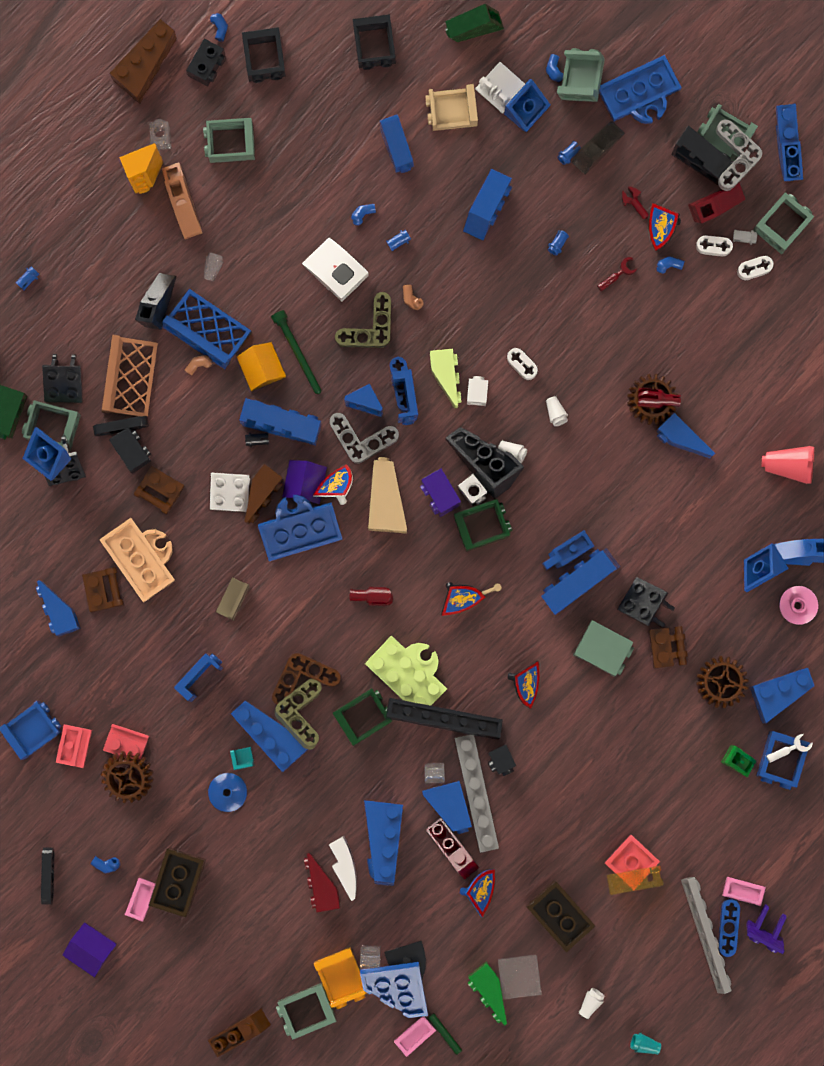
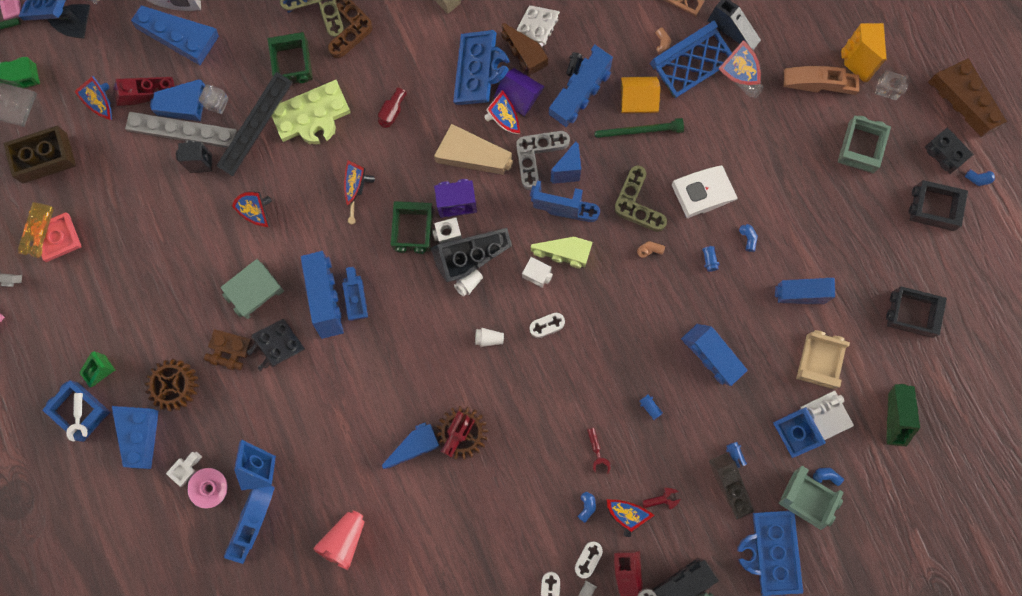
camera: 115 degrees right, 5 degrees down
(199, 277) = (743, 66): none -> shield
(792, 635) = (183, 470): none -> white plate

